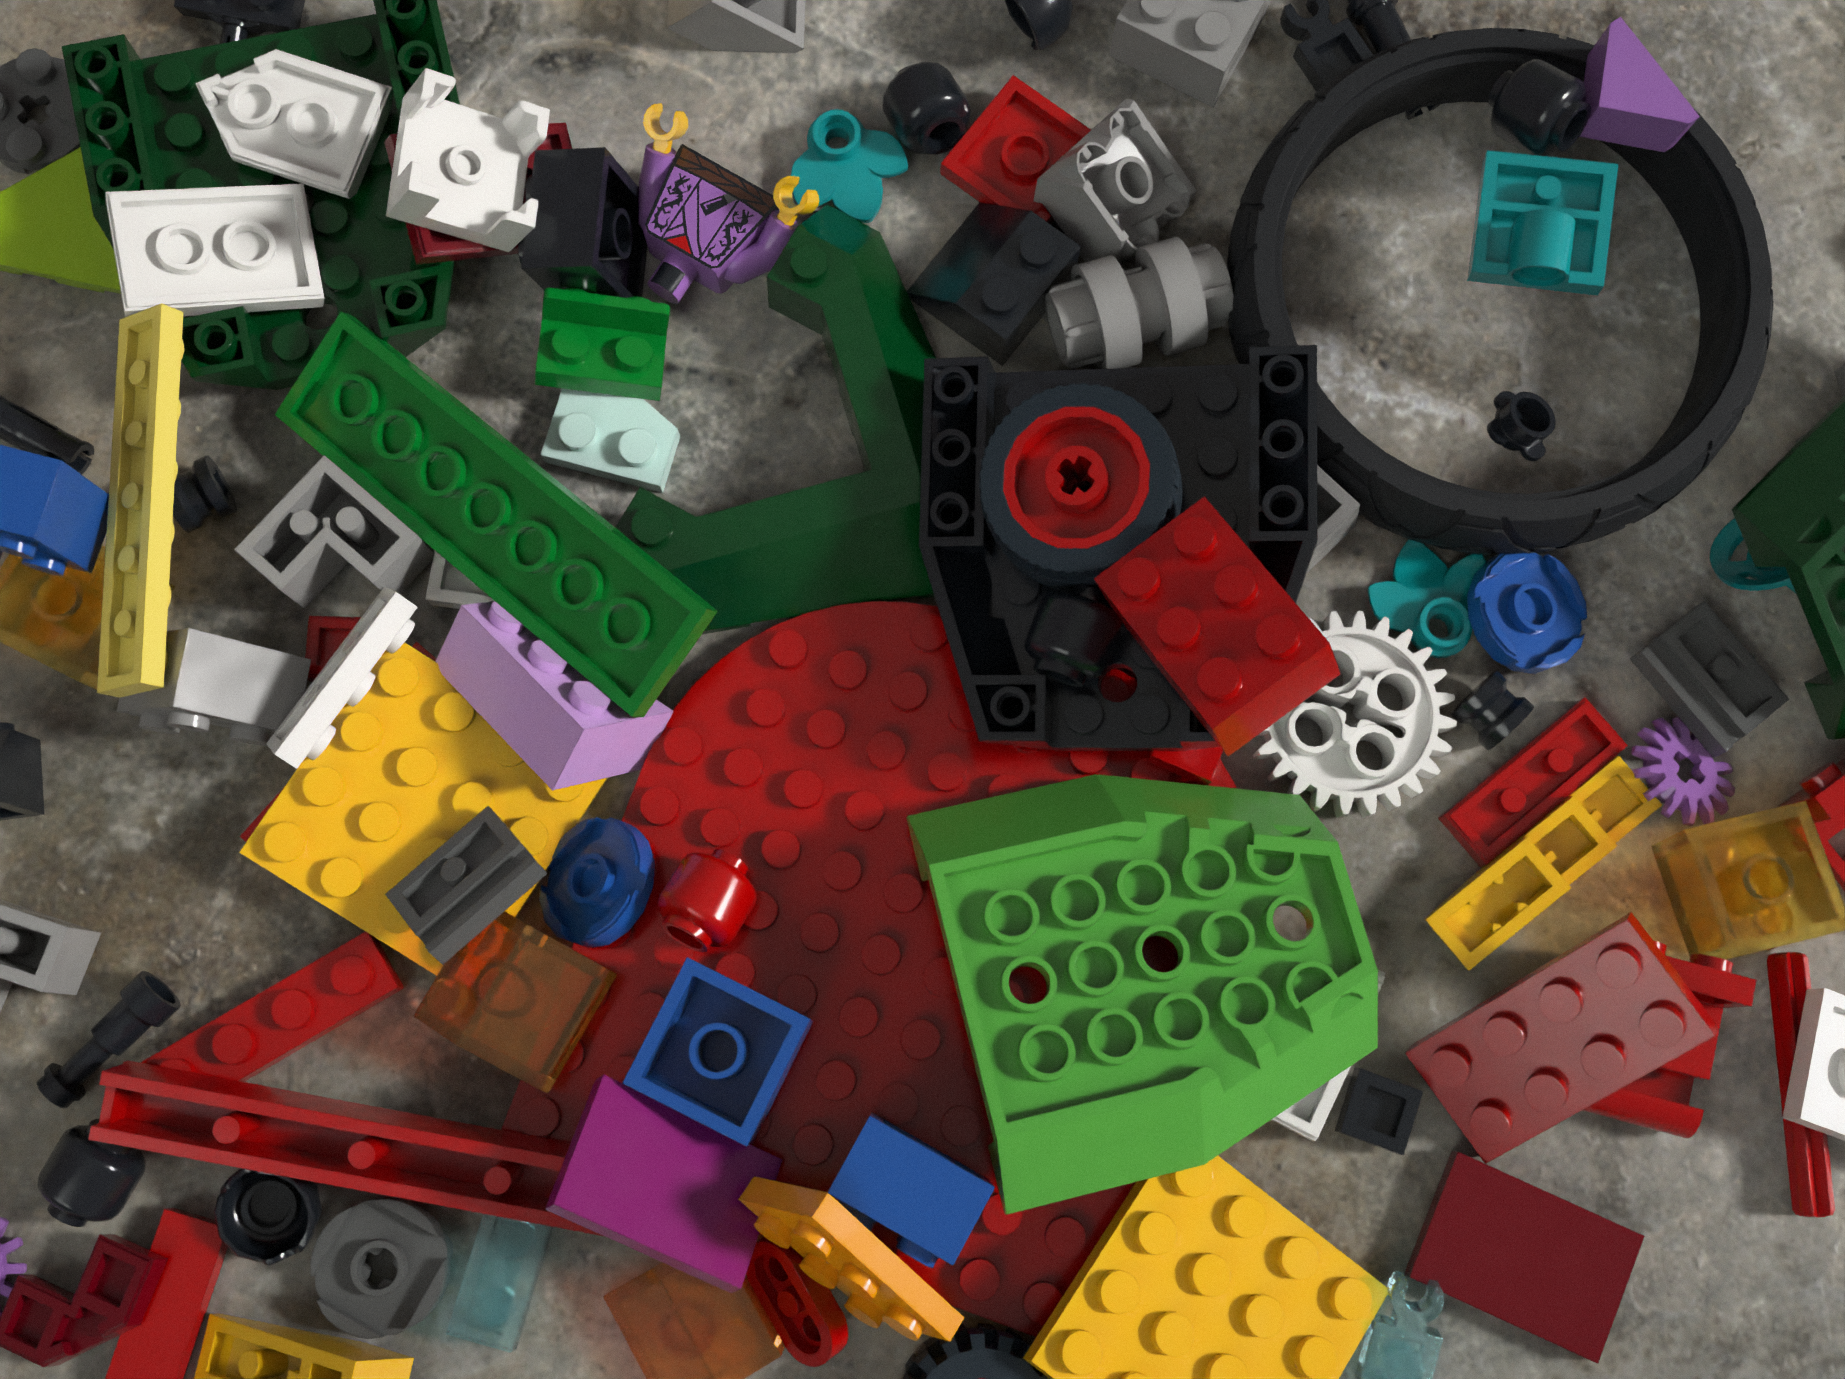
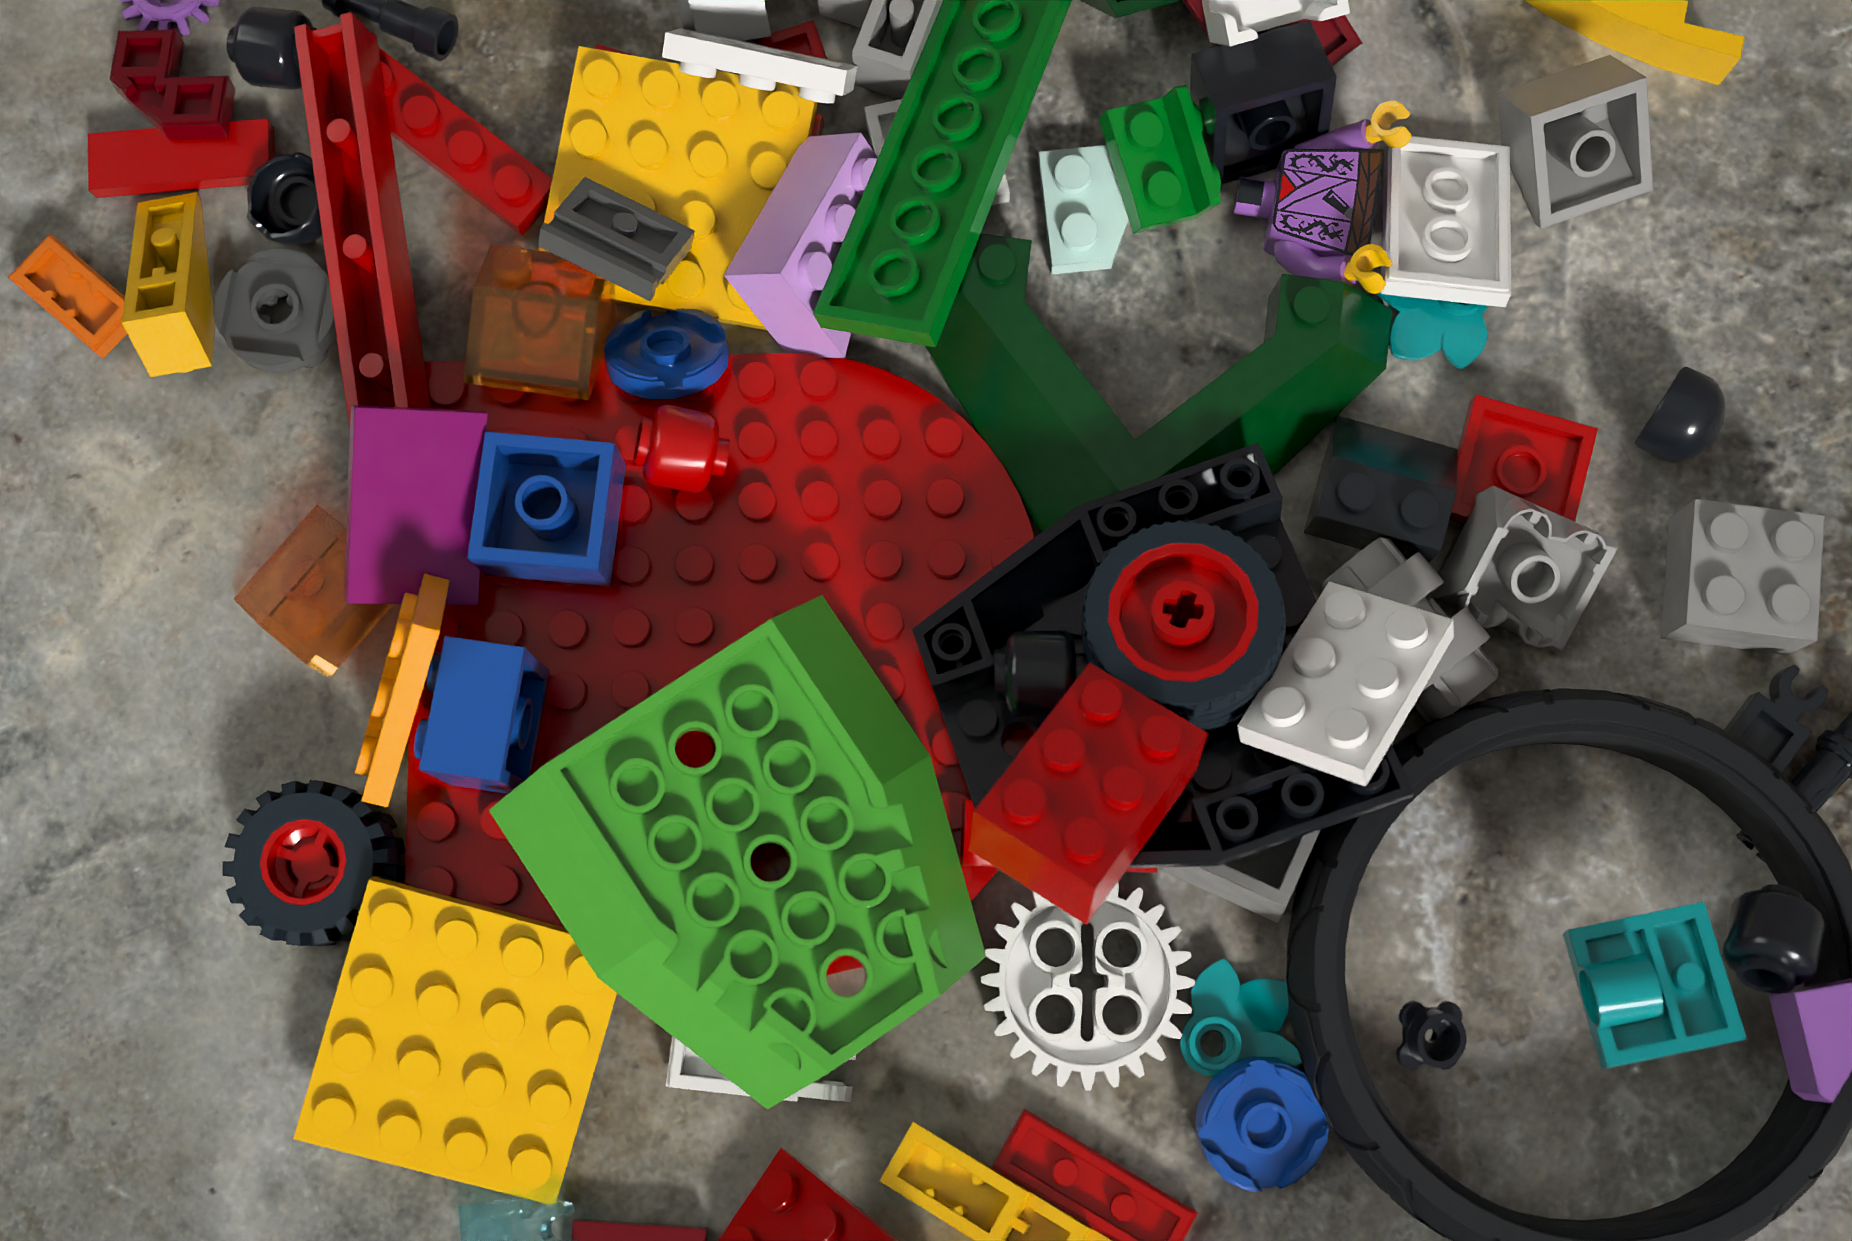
camera: 75 degrees right, 0 degrees up
(499, 1282) = (293, 412): clear light blue plate -> none
(770, 118) = (1447, 221): none -> white tile
(797, 1305) = (352, 682): red plate -> none
(926, 108) = (1526, 360): black head -> none
(1190, 364) = (1347, 682): none -> white plate
(1379, 1111) = (716, 1139): black plate -> none
(1492, 710) = (1146, 1121): black wheel -> none

